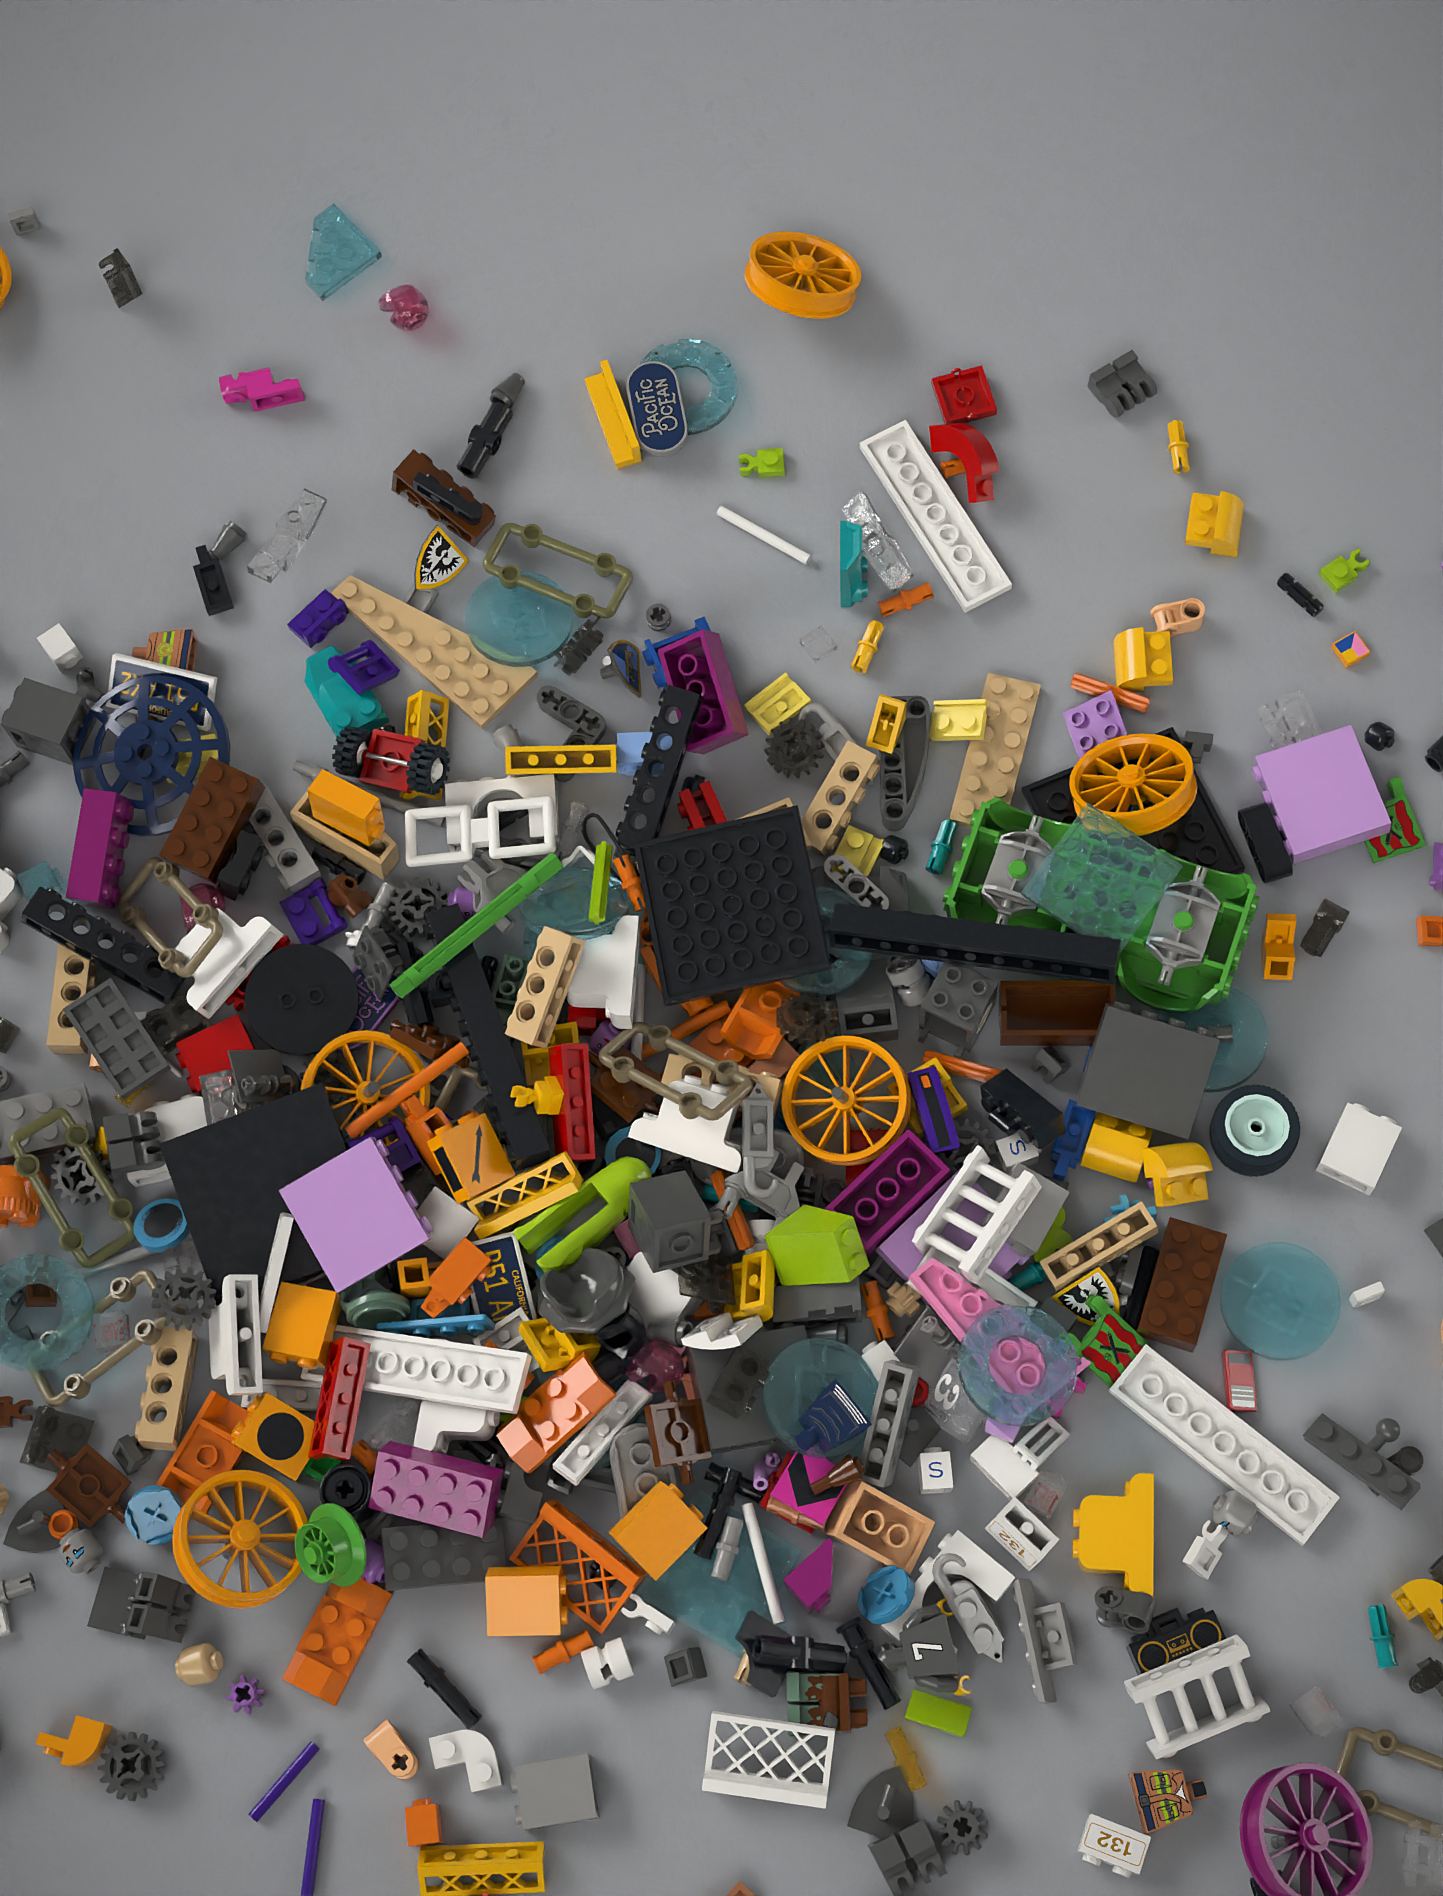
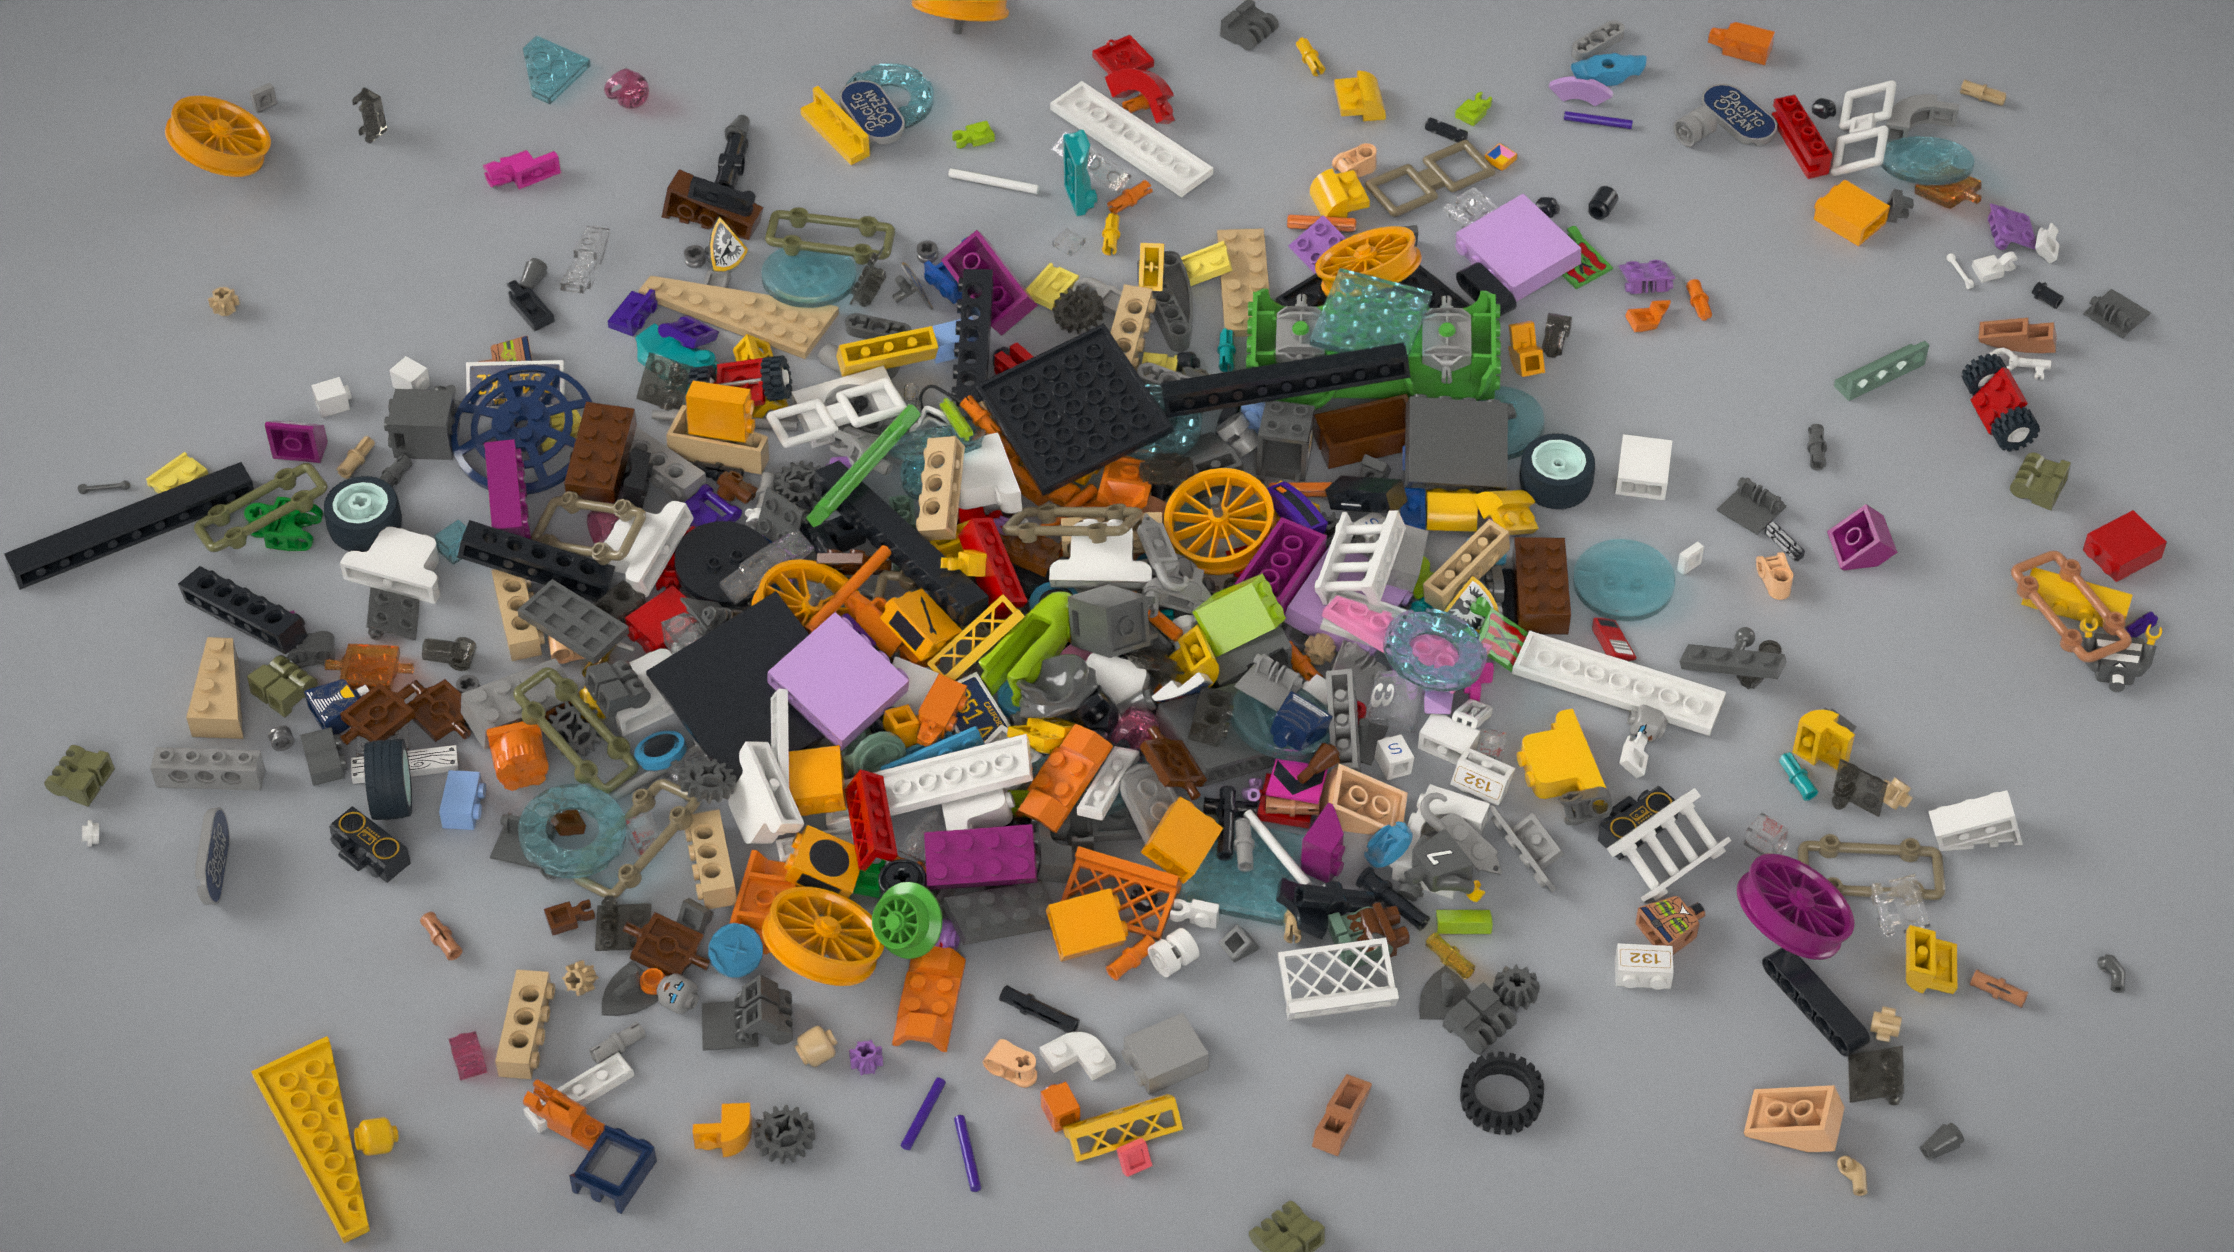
camera: 25 degrees left, 20 degrees down
(316, 731) = (664, 382): none -> clear smoke hinge
(339, 1021) = (751, 571): none -> clear slope
(406, 550) = (694, 256): none -> flat silver bush
(820, 1352) = (1268, 683): none -> light grey hinge
(1257, 660) = (1430, 178): none -> dark tan bar

